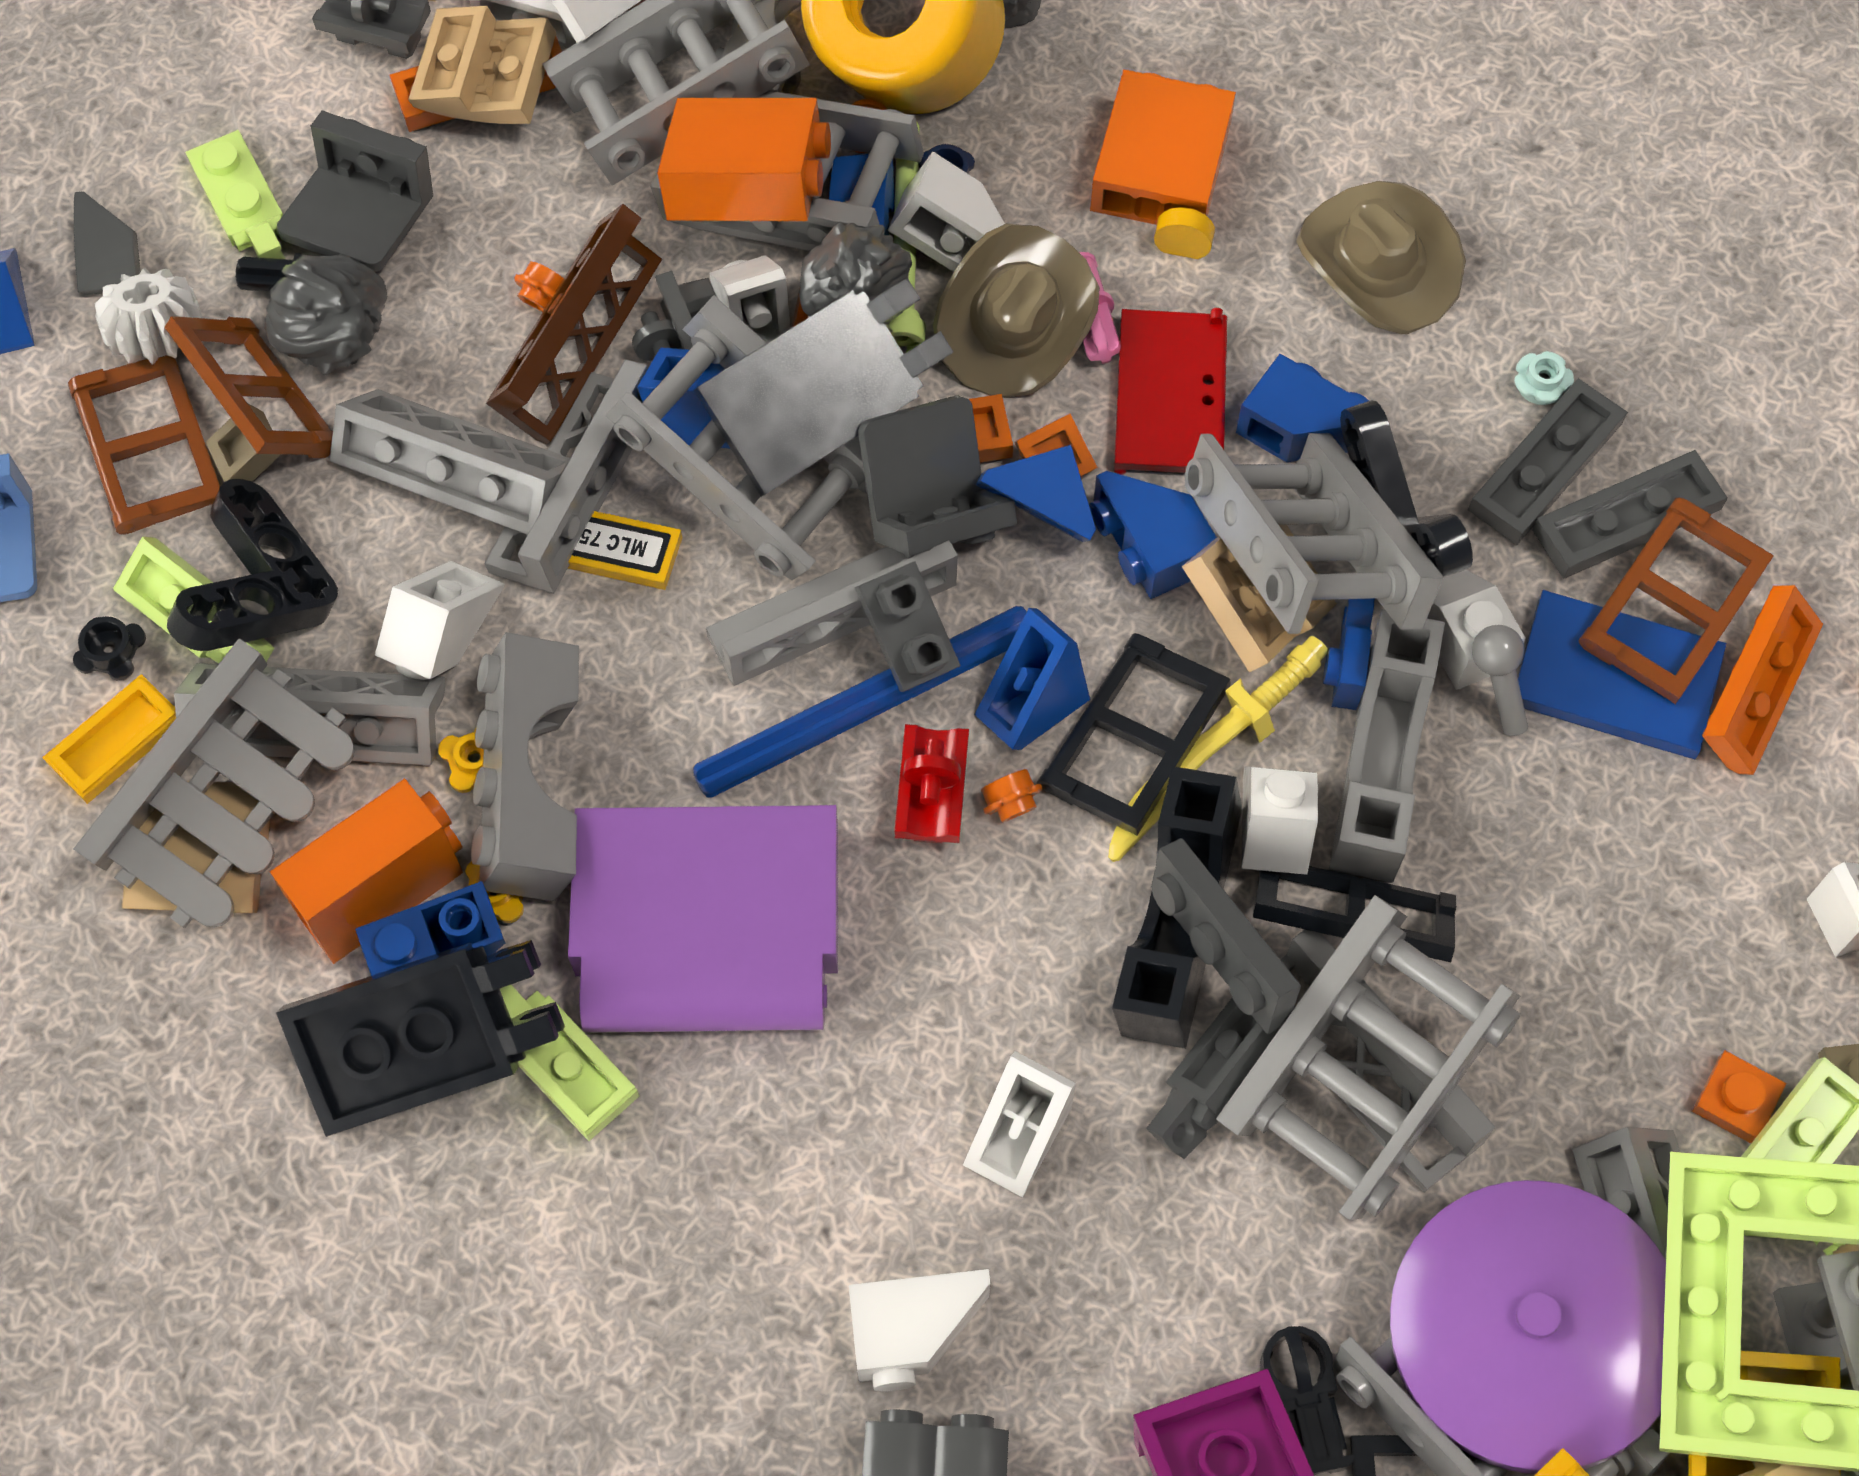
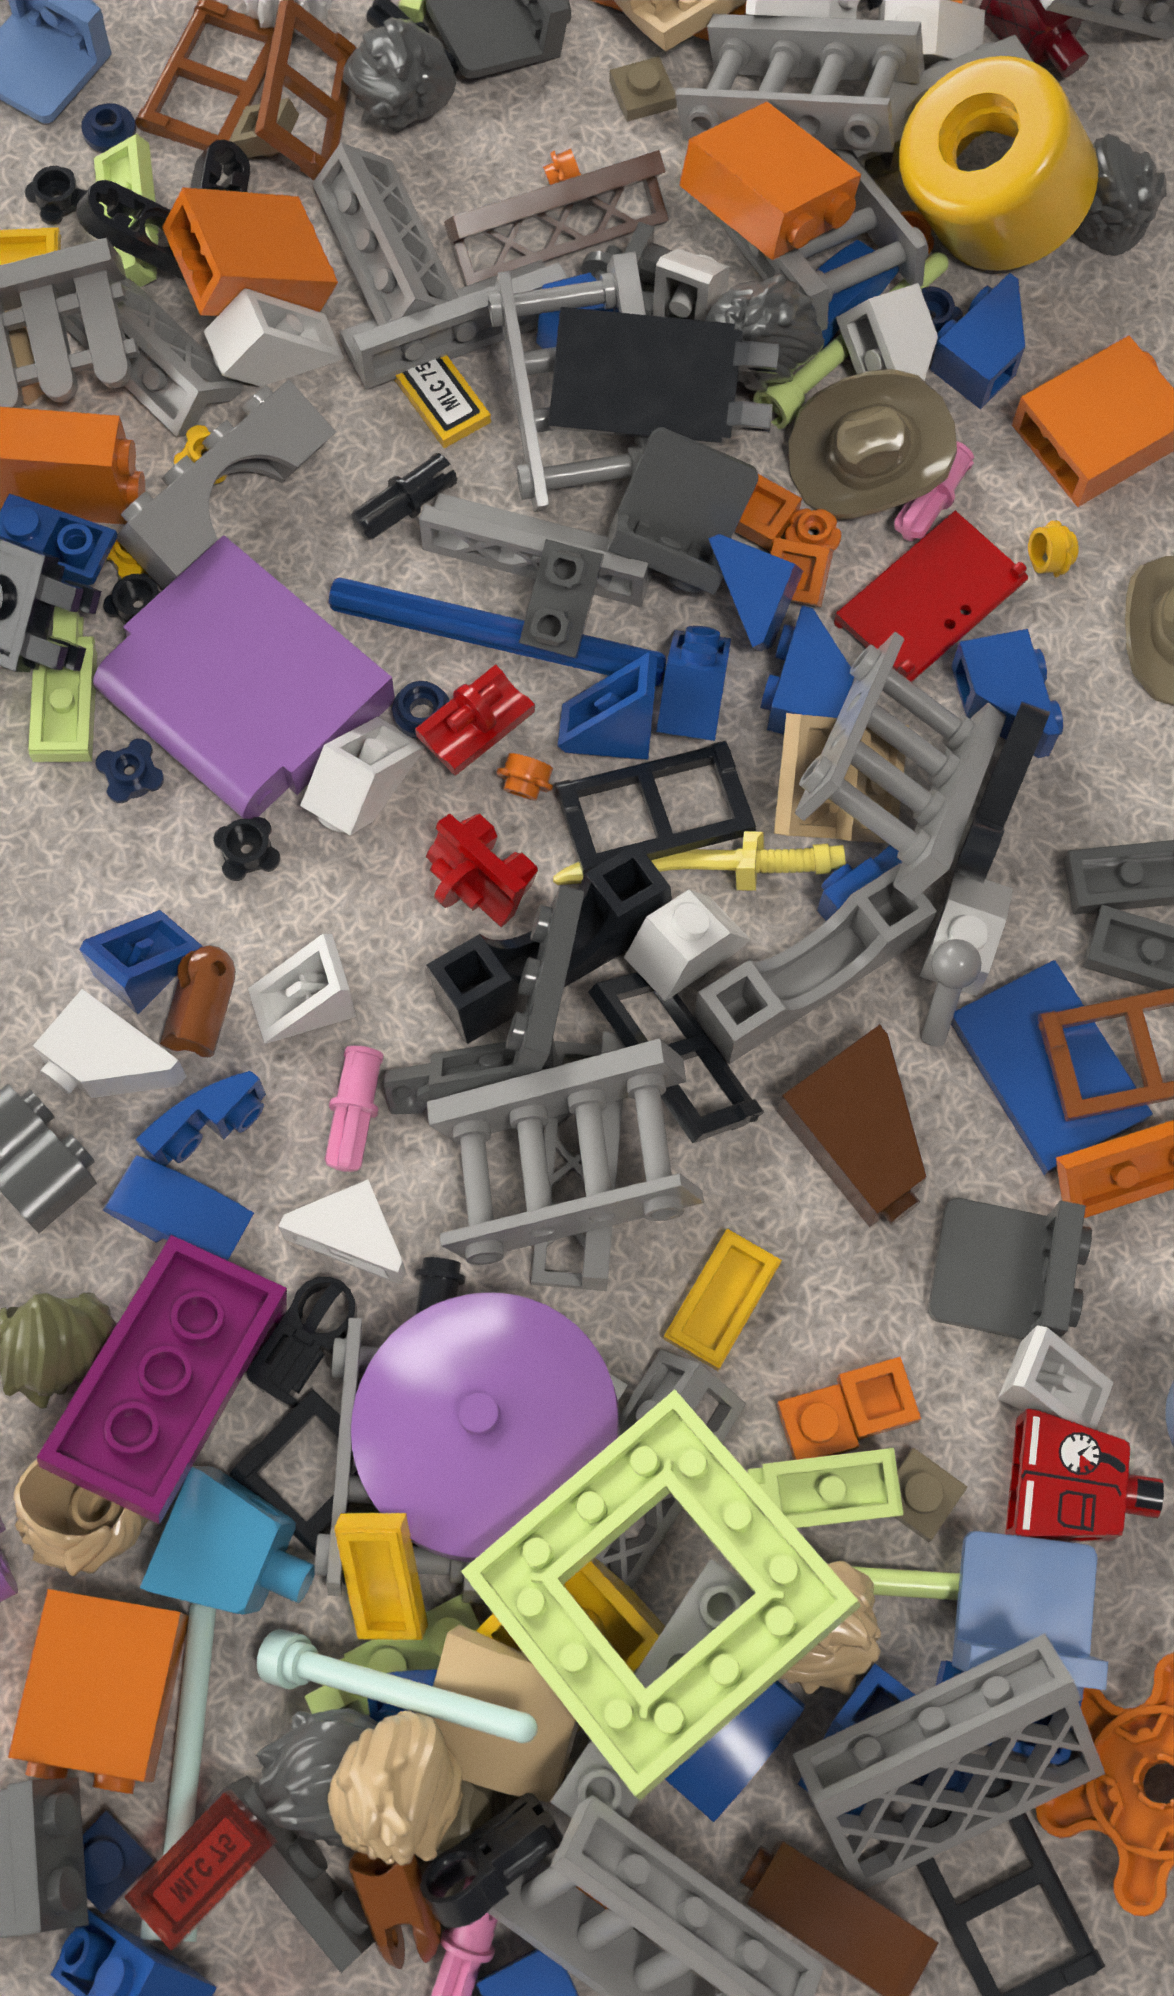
camera: 40 degrees right, 5 degrees up
(104, 566) = (105, 138): none -> dark blue plate
(347, 555) = (247, 242): none -> orange brick
(531, 169) = (643, 88): none -> dark tan plate
(549, 914) = (128, 591): none -> black plate
(679, 654) = (403, 497): none -> black axle
(690, 1092) = (124, 786): none -> dark blue plate
(842, 1033) = (246, 832): none -> black plate
(858, 1219) = (138, 957): none -> blue slope
(867, 797) = (411, 696): none -> dark blue plate
(884, 909) = (359, 775): none -> white slope
(944, 1210) = (200, 1001): none -> dark orange piece
(1019, 160) = (984, 346): none -> blue slope
(1031, 400) = (819, 520): none -> orange plate
(1051, 1285) = (220, 1106): none -> blue slope
(1053, 903) = (473, 873): none -> red hips
(1074, 599) = (694, 683): none -> blue slope
(1100, 1394) = (168, 1203): none -> blue slope
(1151, 1182) = (353, 1108): none -> bright pink axle
(1184, 233) = (1057, 491): yellow tile -> none
(1225, 274) = (1059, 546): none -> yellow plate
(1258, 1278) = (349, 1230): none -> white slope
(1367, 1266) = (438, 1281): none -> black pin
(1544, 841) = (860, 1128): none -> reddish brown slope
(1575, 1068) = (722, 1299): none -> yellow tile
(1754, 847) = (1009, 1268): none -> dark grey bracket
(1763, 1033) = (879, 1398): none -> orange plate

